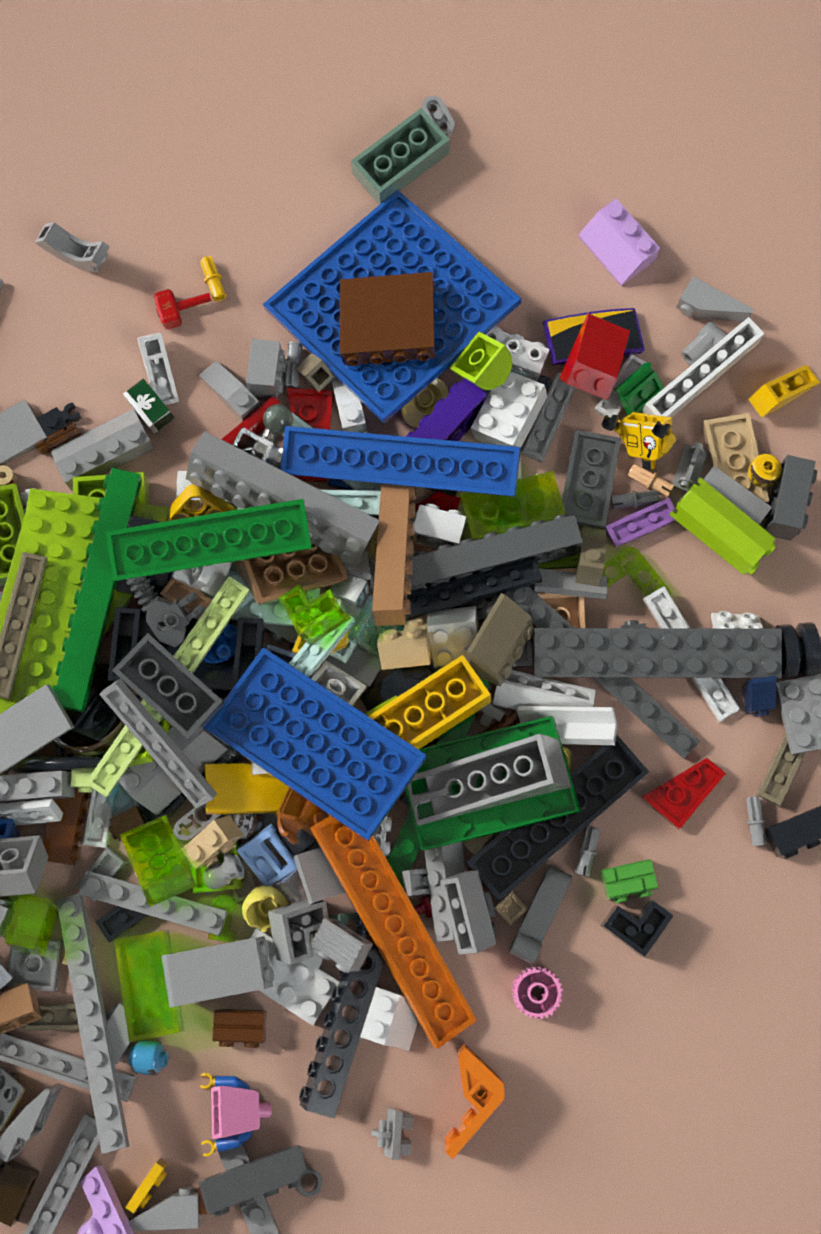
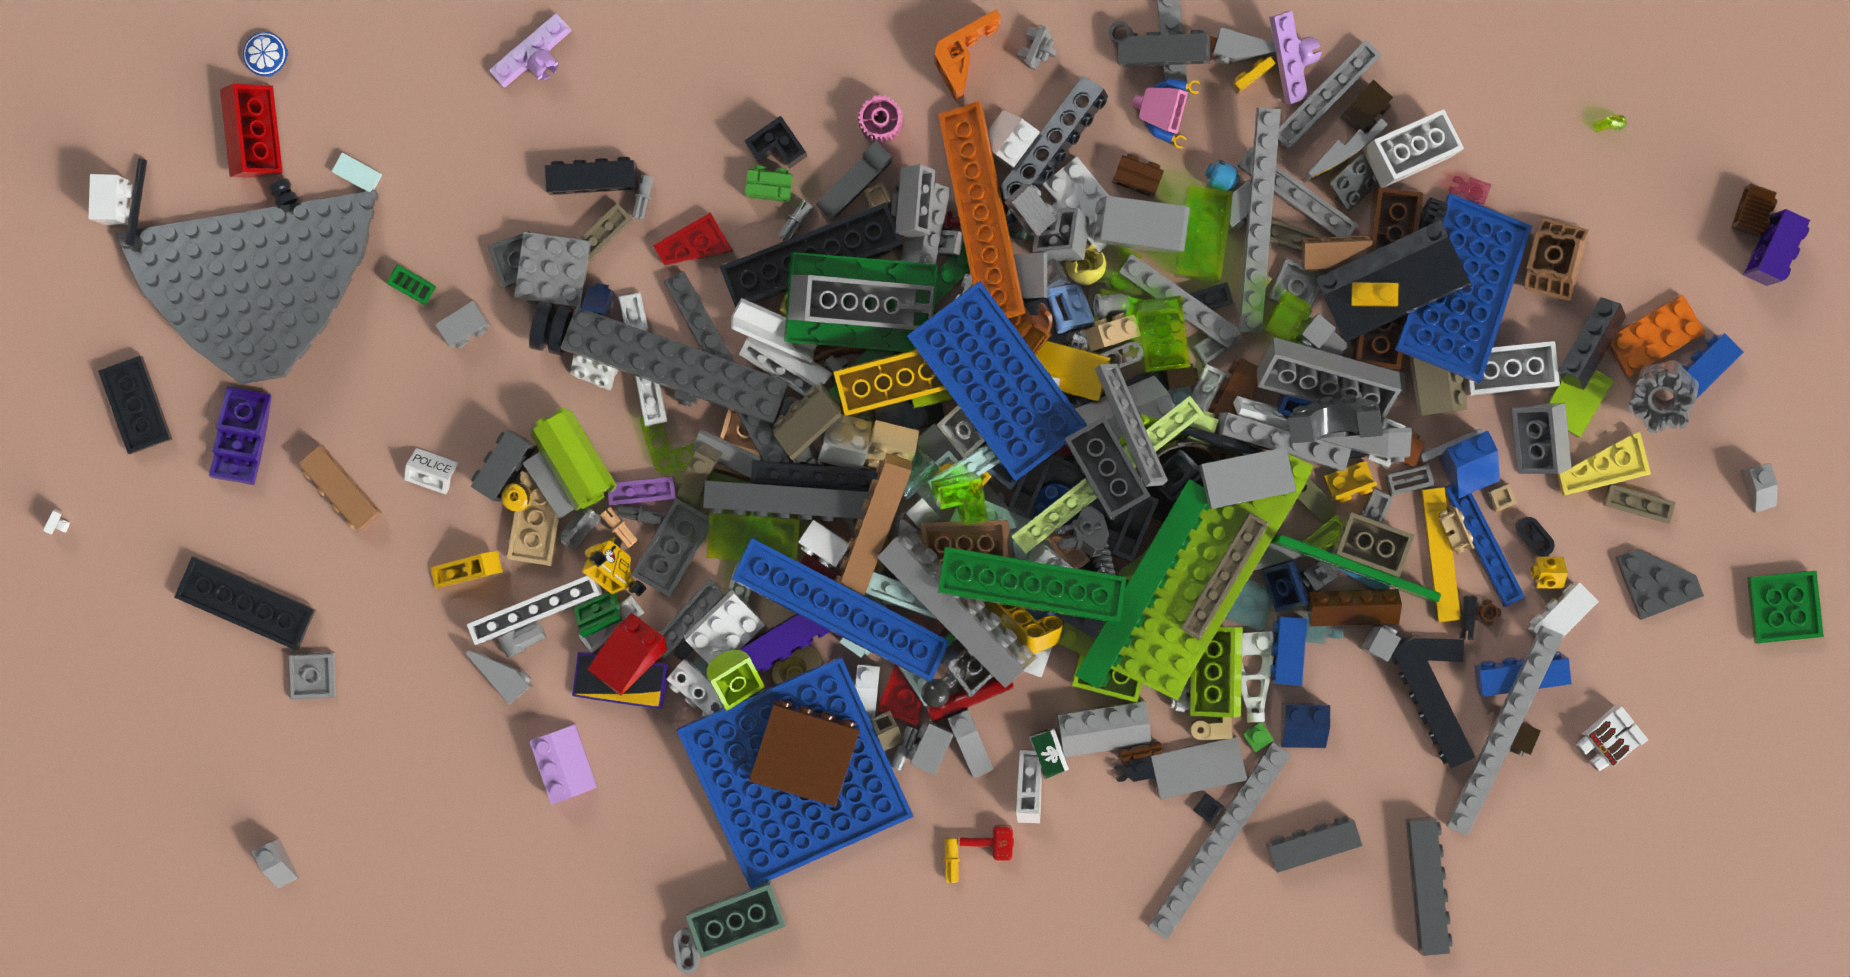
camera: 165 degrees left, 10 degrees up
(71, 249) = (1073, 932): light grey arch -> none

